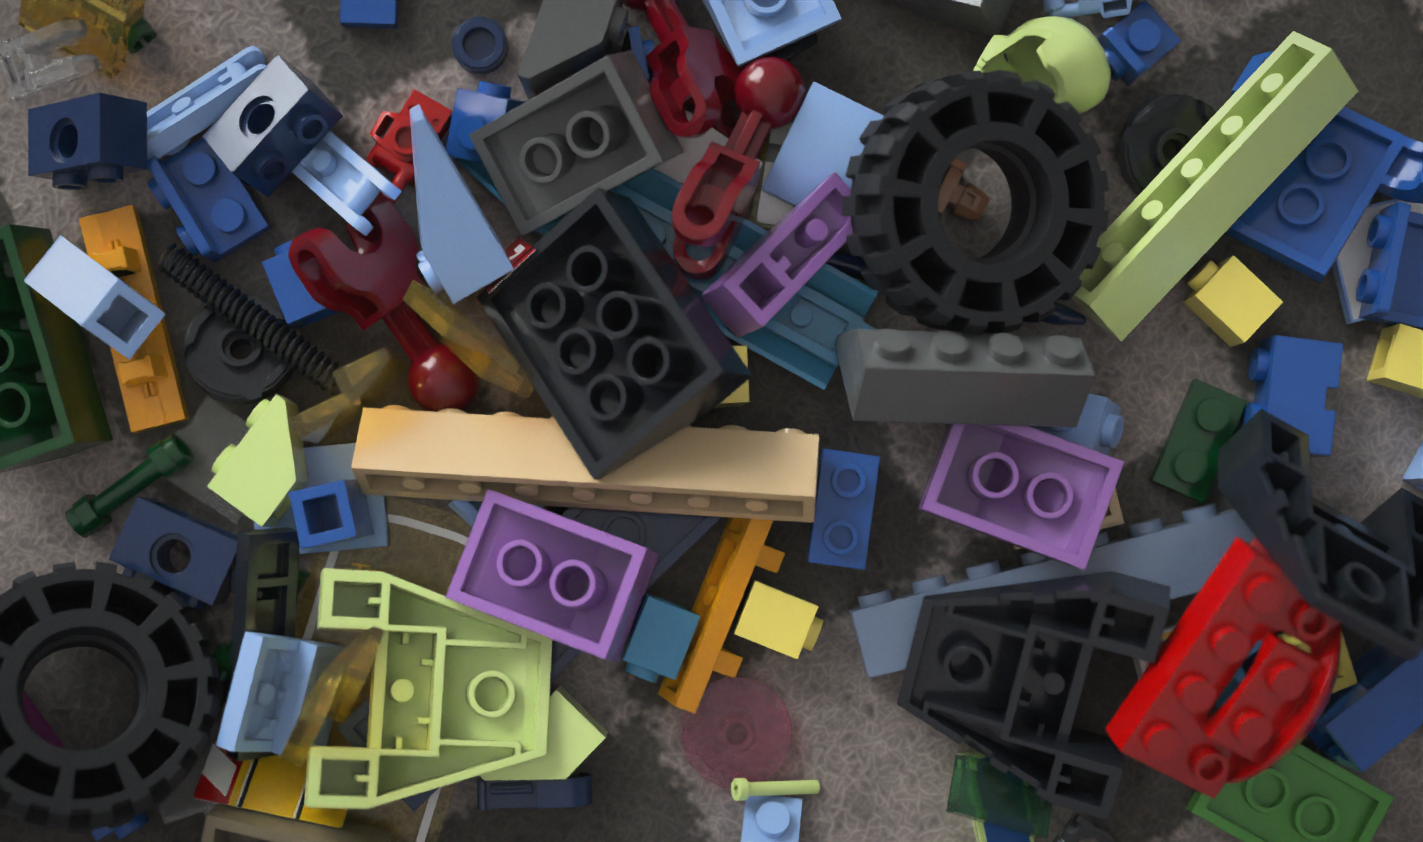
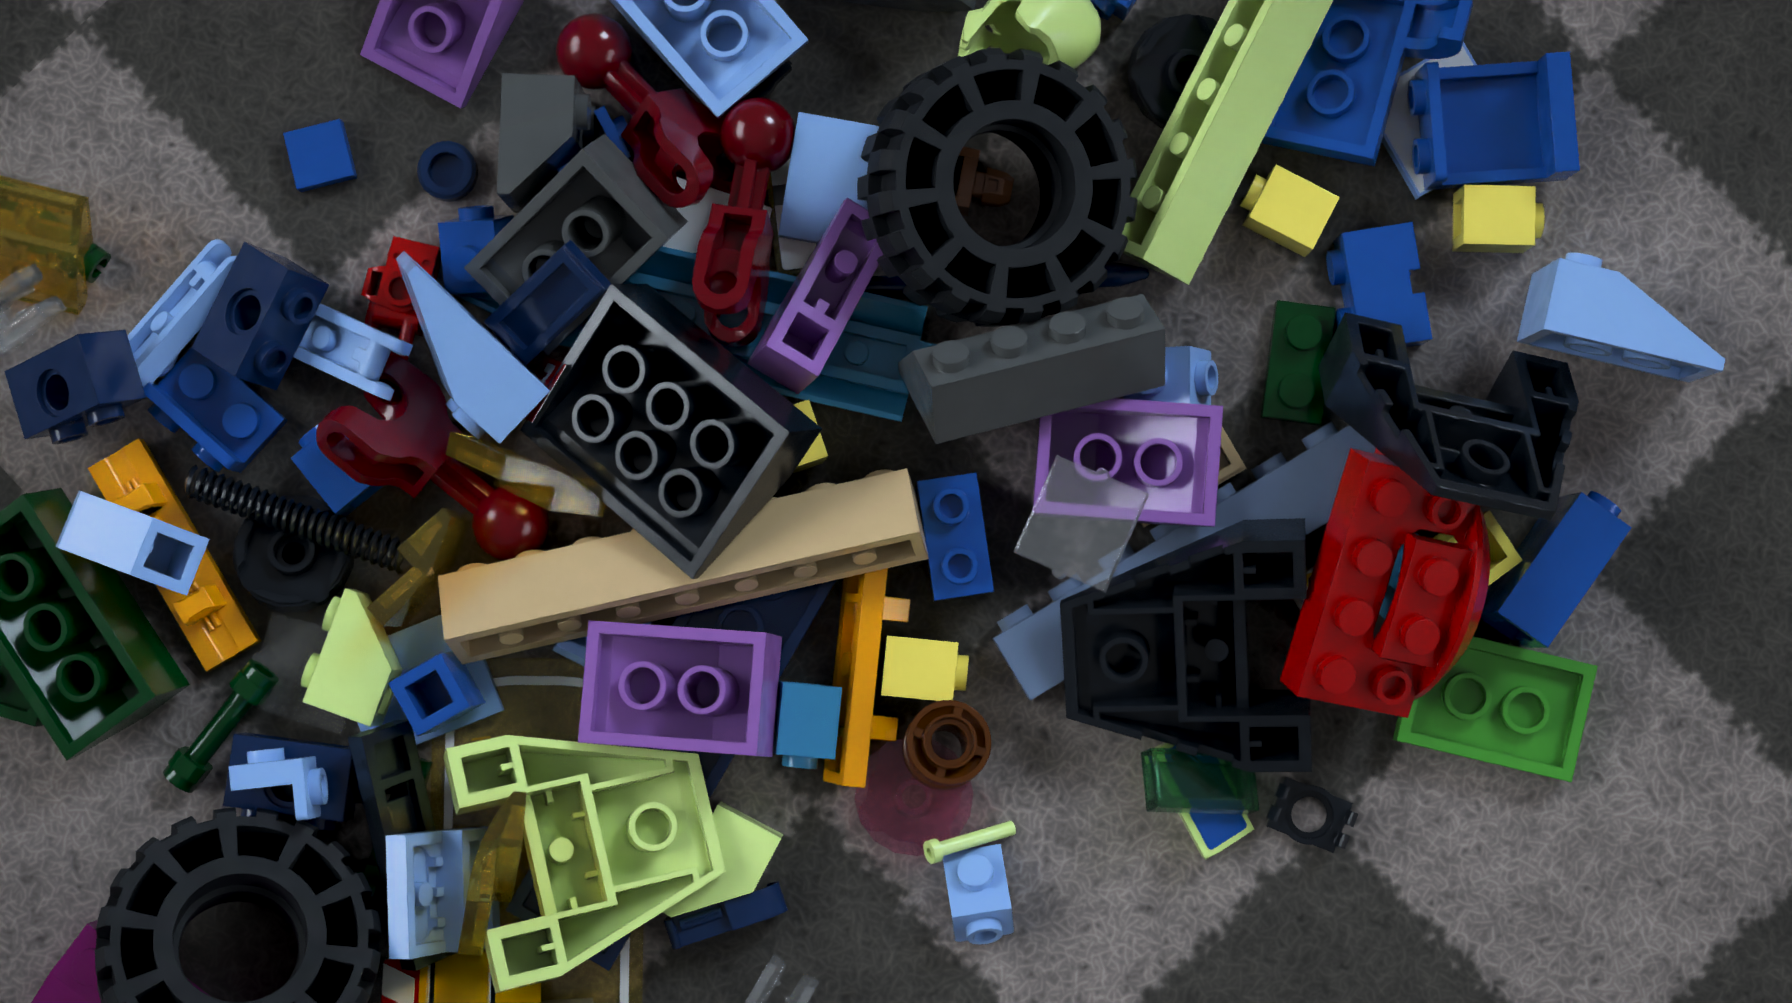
camera: 15 degrees left, 0 degrees up
(160, 540) = (271, 768): none -> light blue bracket
(535, 188) = (547, 302): none -> dark blue tile
(806, 696) = (960, 721): none -> reddish brown wheel
(964, 532) = (1081, 523): none -> clear piece

